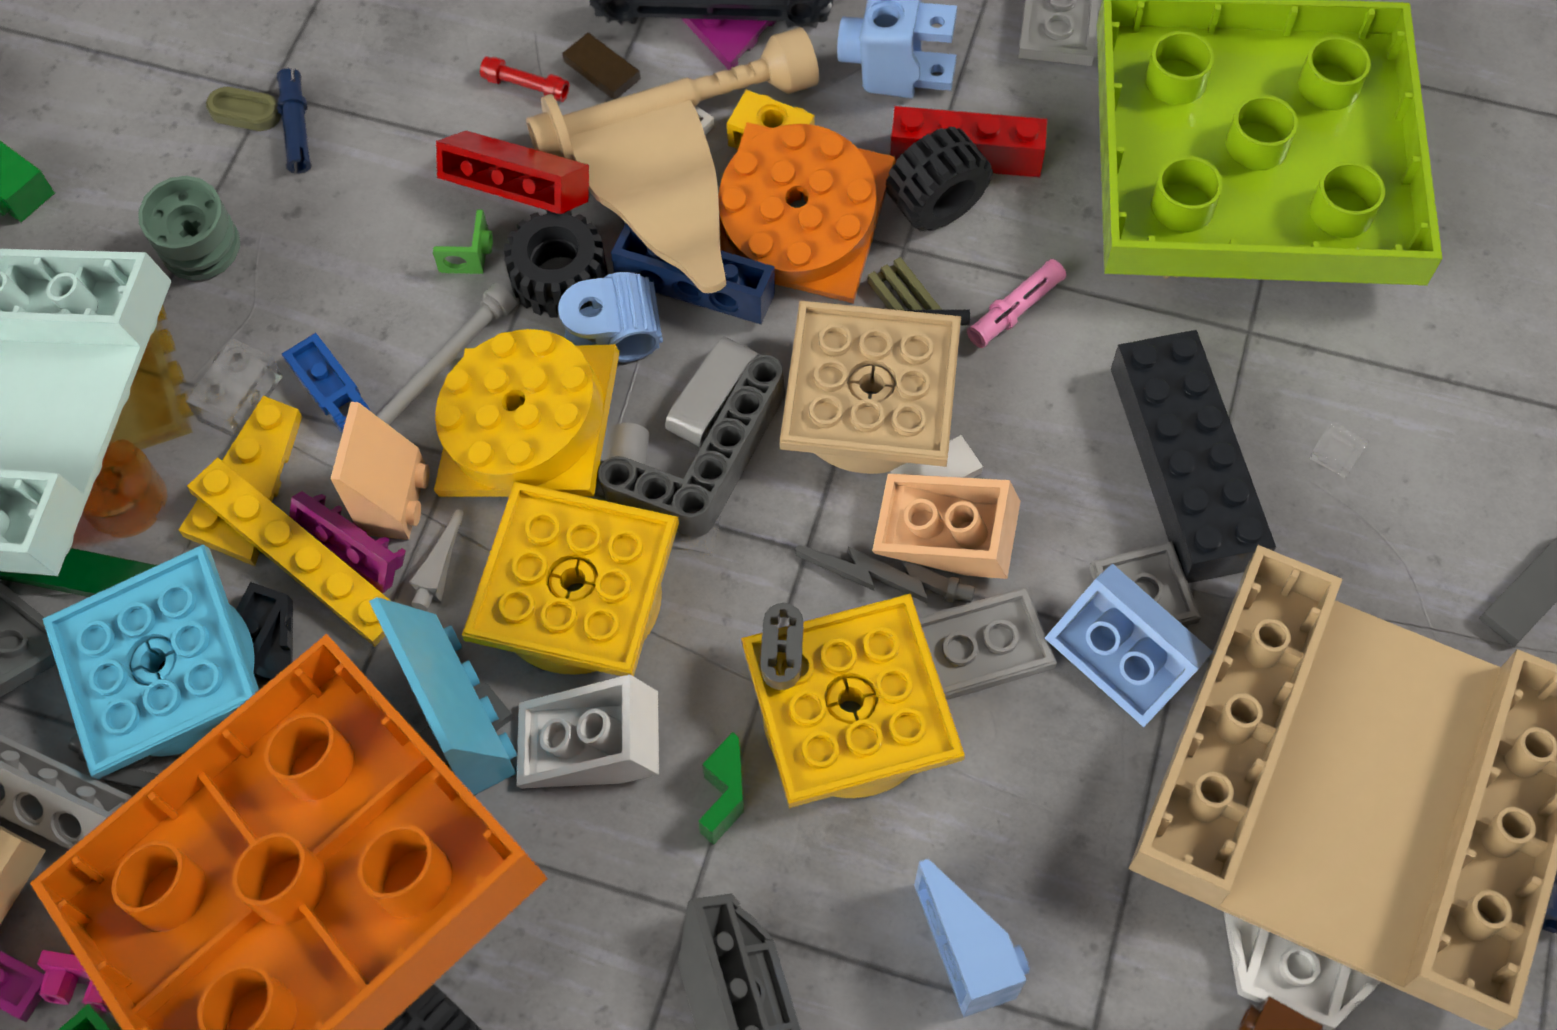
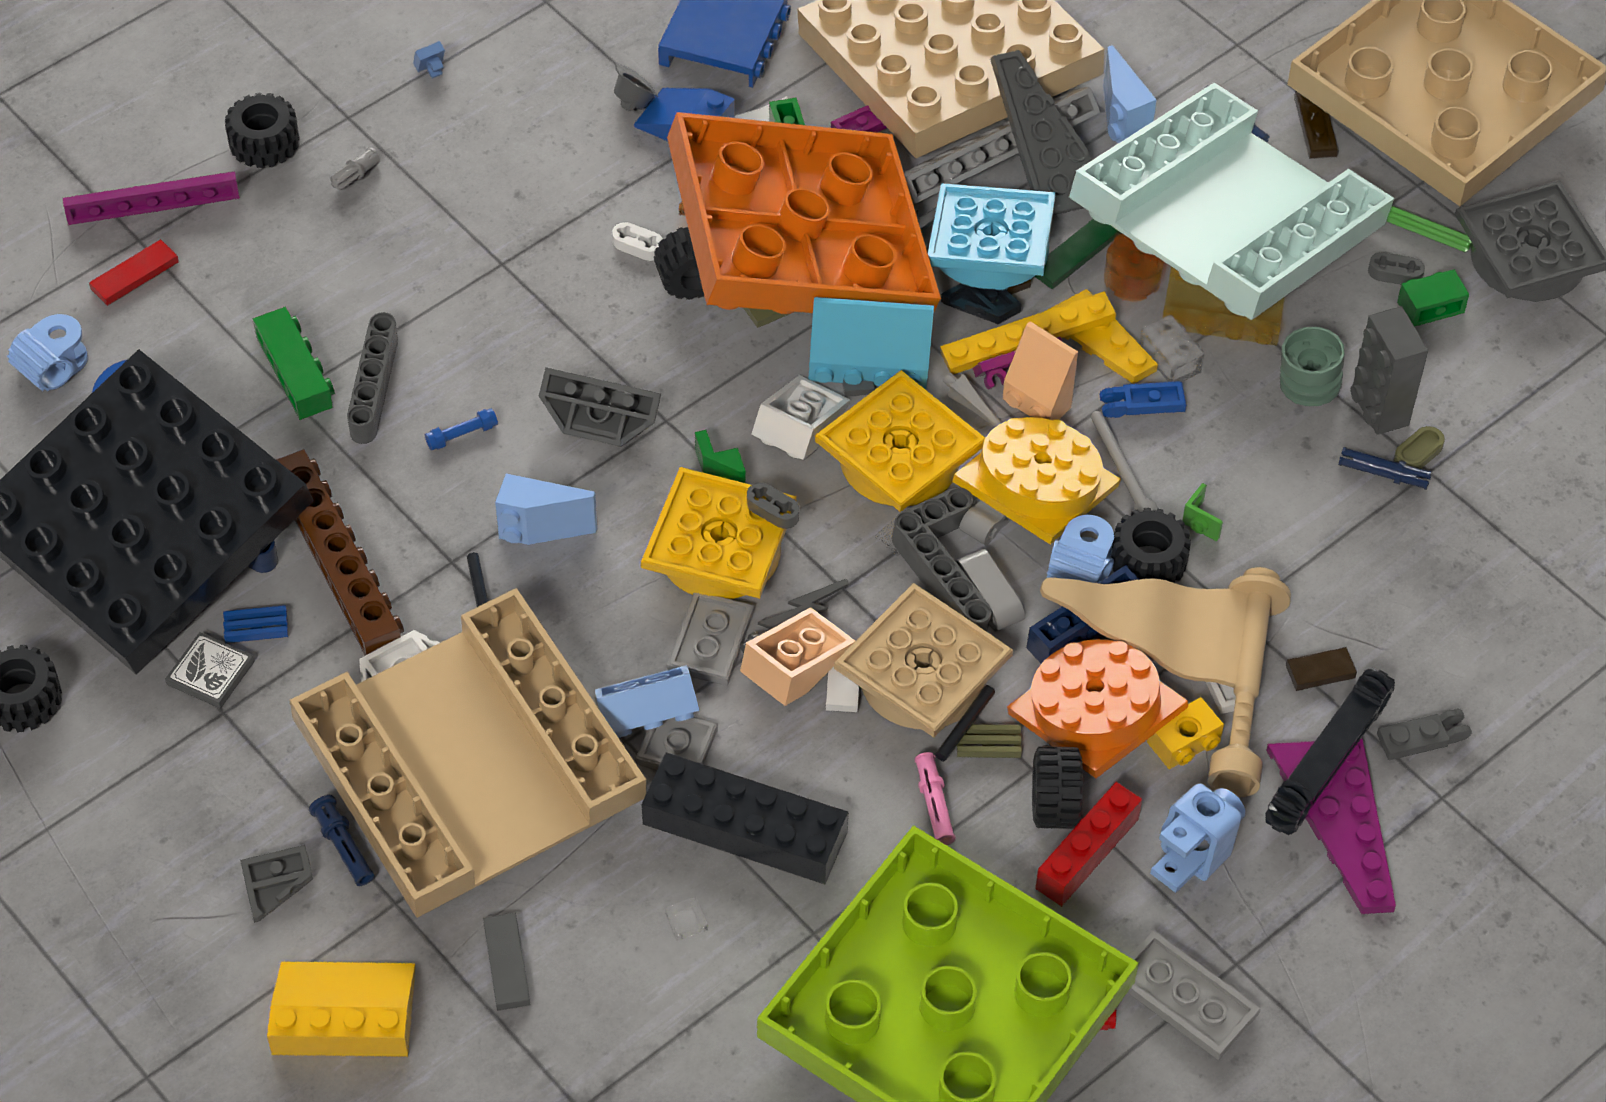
camera: 120 degrees right, 10 degrees down
(172, 115) = (1389, 370): none -> dark grey brick
(495, 71) = (1356, 603): red bar -> none
(513, 171) = (1237, 550): red brick -> none
(1117, 957) = (477, 579): none -> black bar

